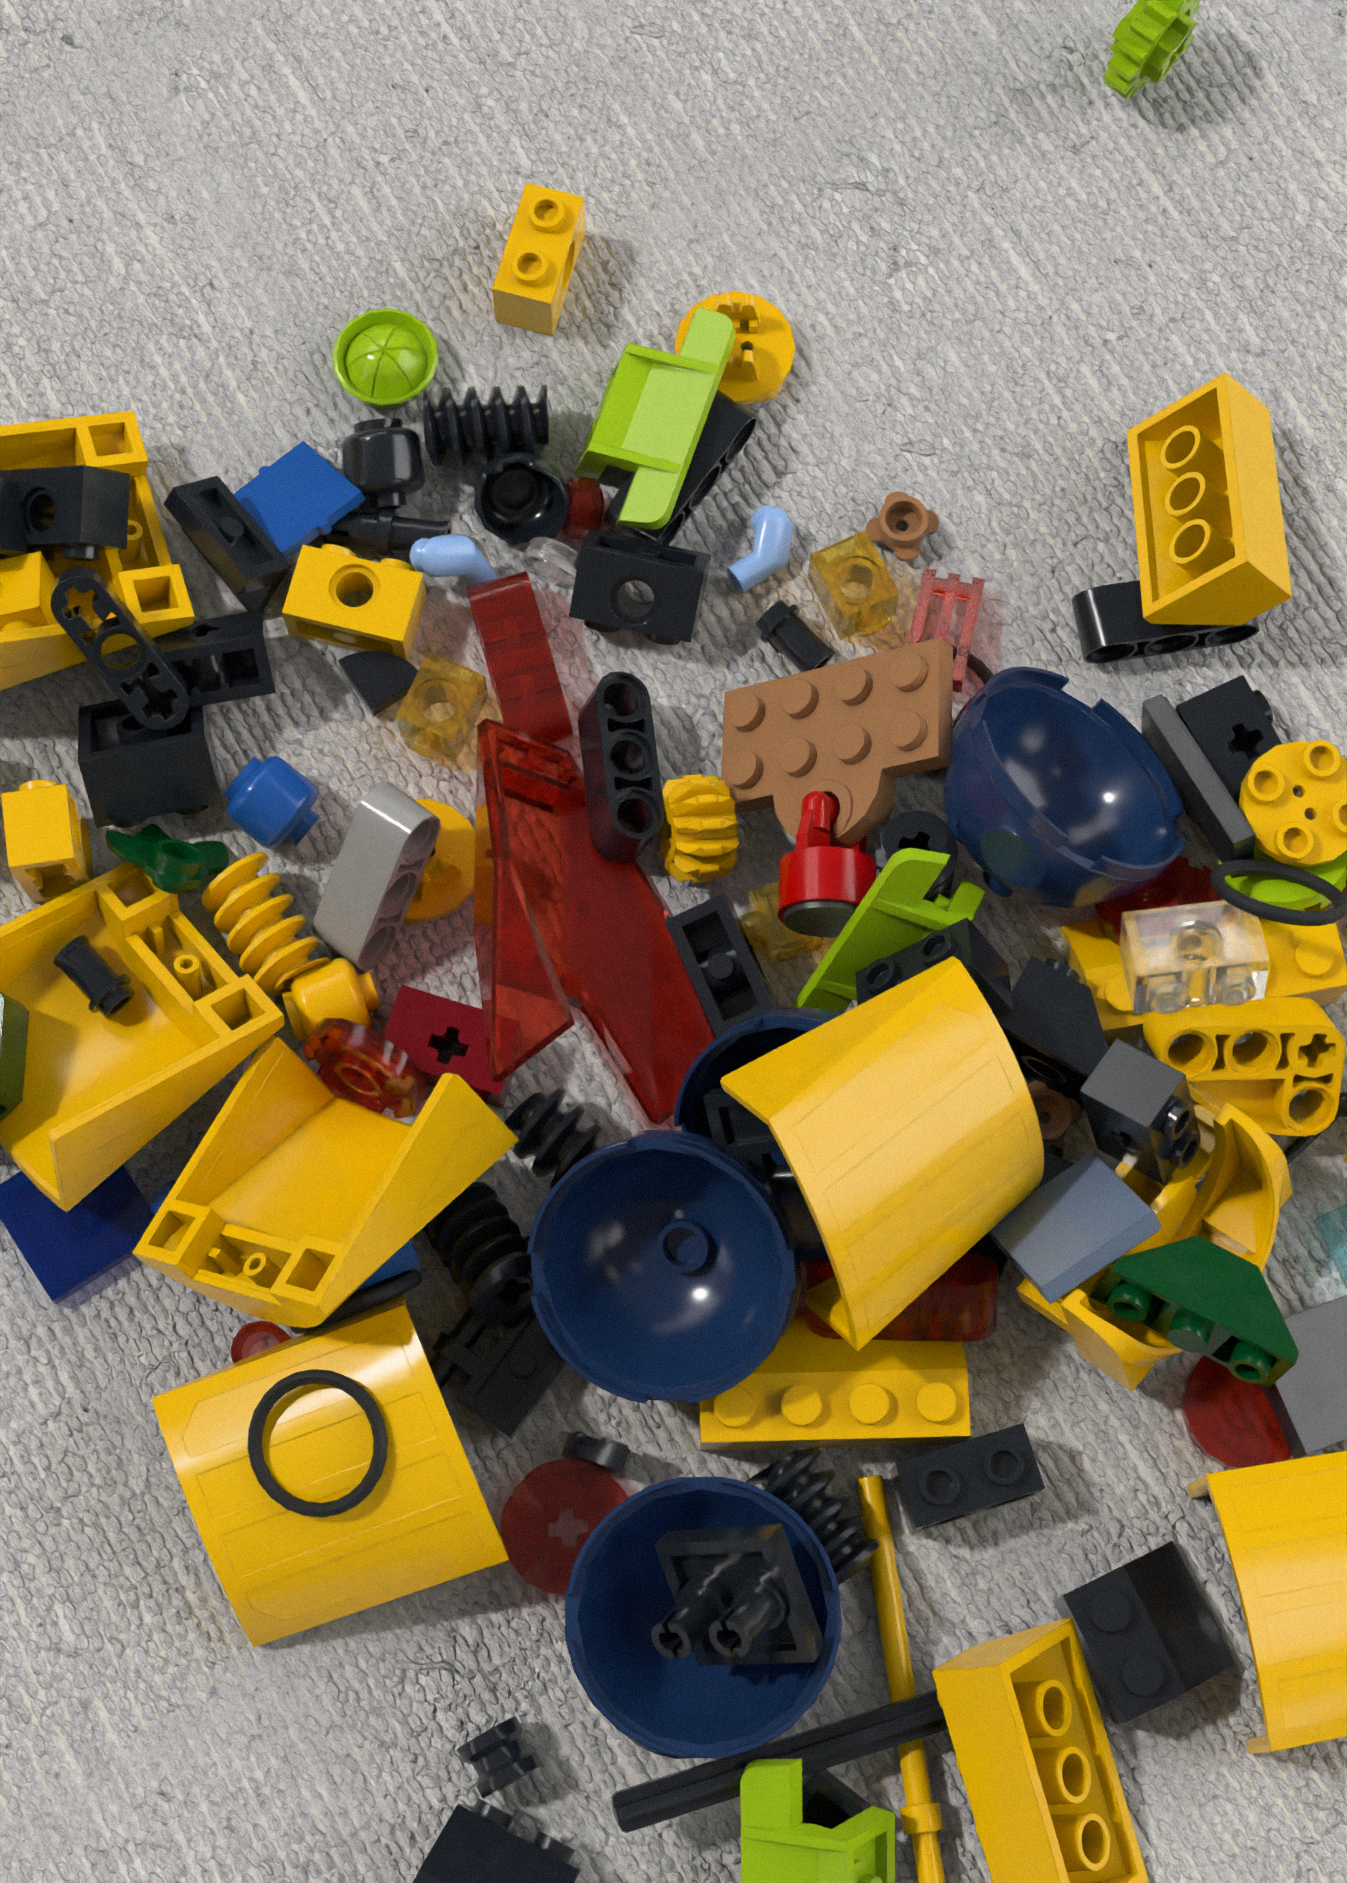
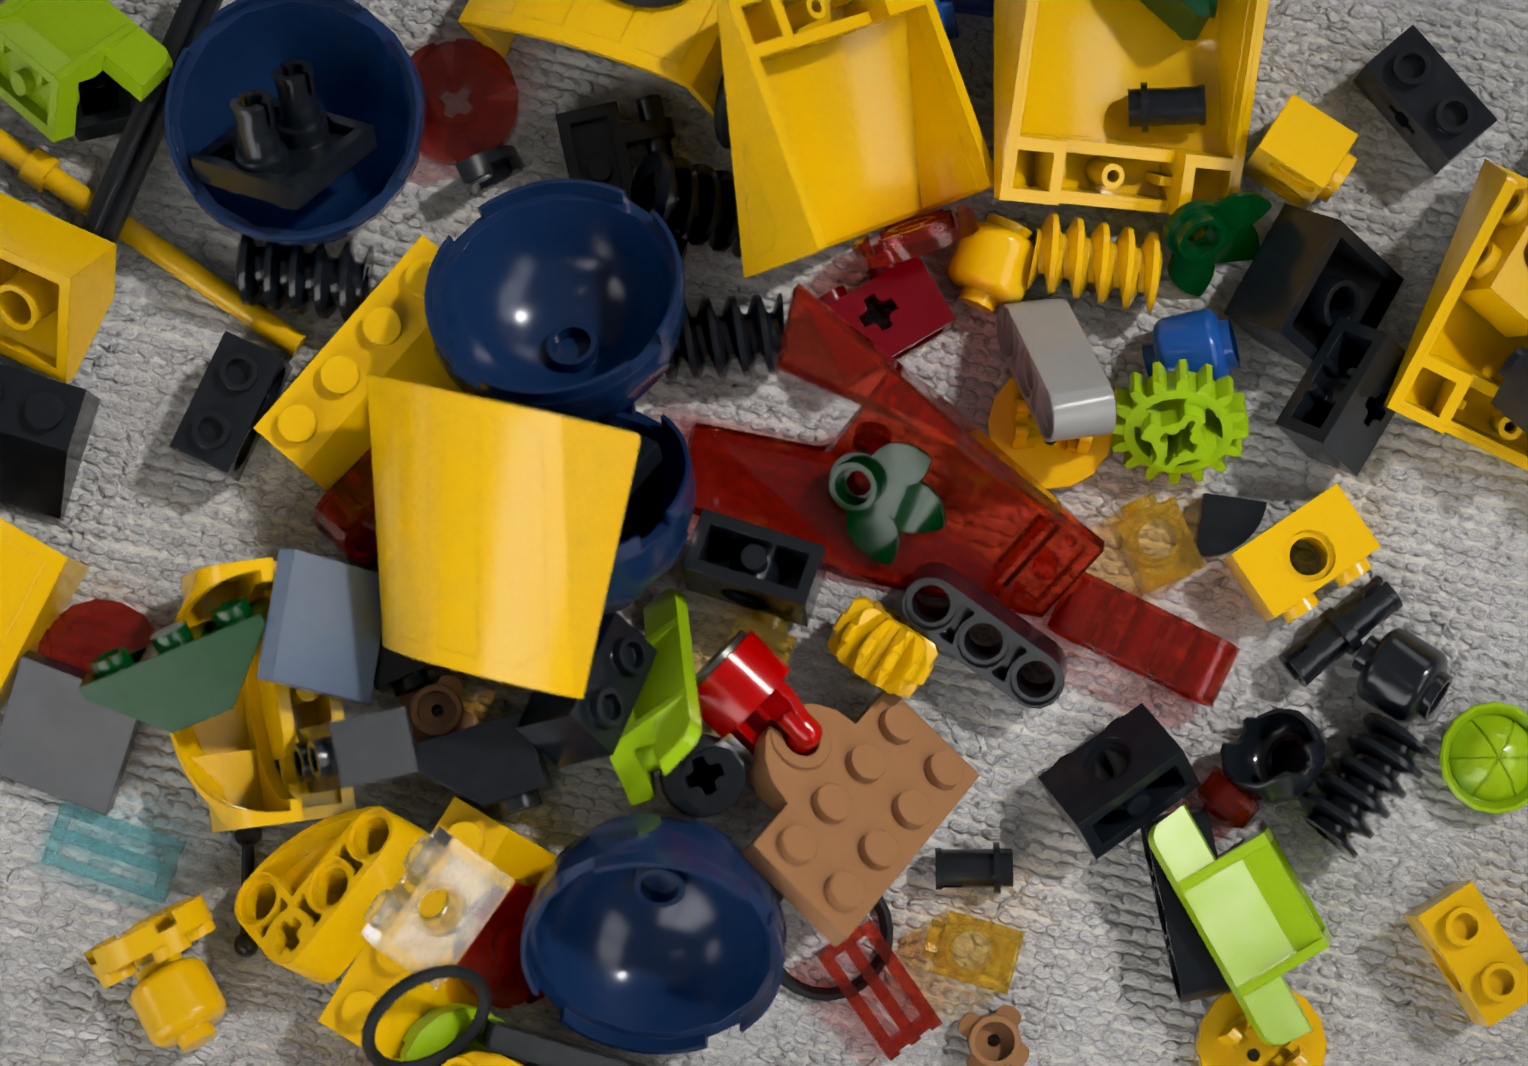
camera: 130 degrees right, 10 degrees up
(78, 622) = (1425, 332): black beam -> none
(229, 540) = (1437, 494): black panel -> none
(298, 498) = (1431, 581): blue piece -> none
(331, 756) = (1179, 422): none -> lime gear
(451, 556) = (1271, 656): light blue arm -> none
(551, 562) = (1204, 734): clear tile -> none
(581, 918) = (893, 504): none -> dark green plate
(770, 549) = (1066, 918): light blue arm -> none

